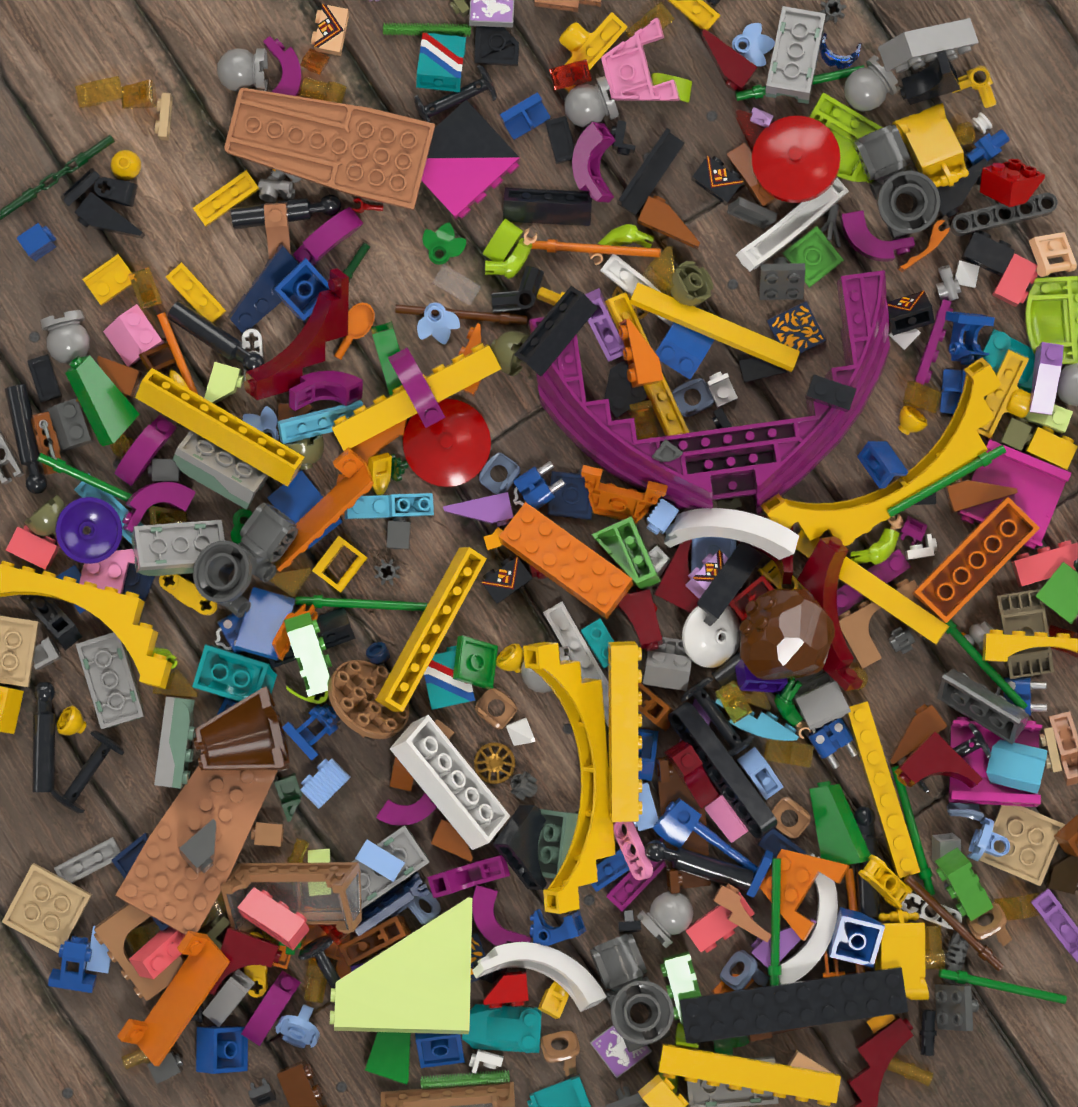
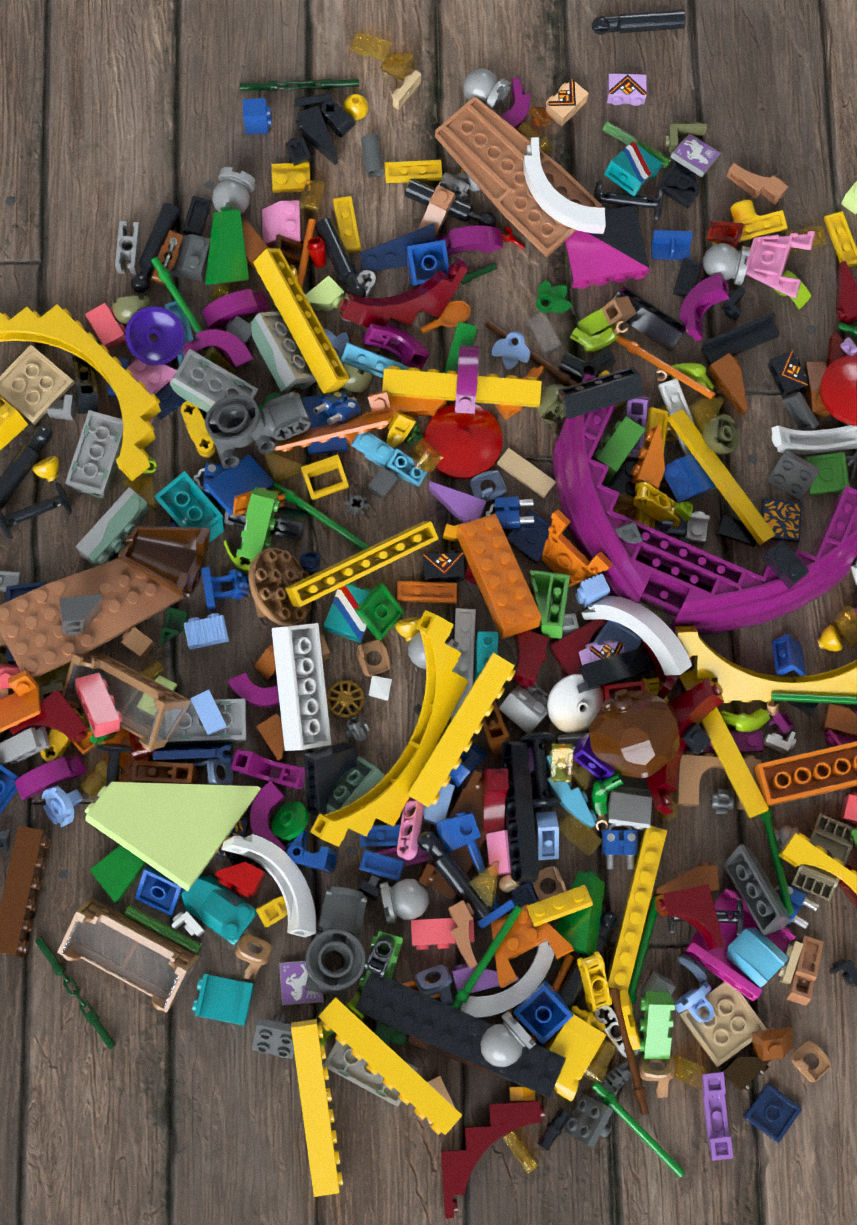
camera: 25 degrees right, 10 degrees down
(100, 250) = (297, 151): none -> black bracket
(176, 207) = (372, 155): none -> dark grey pin
(186, 342) = (317, 251): none -> red cone
(310, 488) = (339, 405): none -> blue piece
(386, 154) = (553, 203): none -> white arch
(421, 483) = (425, 456): none -> clear yellow slope
(506, 613) = (427, 592): none -> orange tile
(517, 221) = (618, 310): none -> medium nougat brick
(517, 909) = (290, 820): none -> green piece
(526, 437) = (526, 473): none -> tan tile
(600, 364) = (618, 446): none -> bright green wedge
(627, 897) = (381, 865): none -> blue tile
(671, 395) = (655, 503): none -> yellow piece
(679, 985) = (379, 958): none -> black piece
(700, 383) = (684, 510): none -> lime tile
(732, 854) = (486, 883): none -> clear yellow slope
(750, 841) = (507, 884): none -> tan cylinder
(812, 834) = (559, 905): none -> yellow plate
(839, 991) = (504, 1042): none -> light grey tile
(842, 600) = (695, 738): none -> black bracket
(940, 899) = (631, 1026): none -> yellow tile

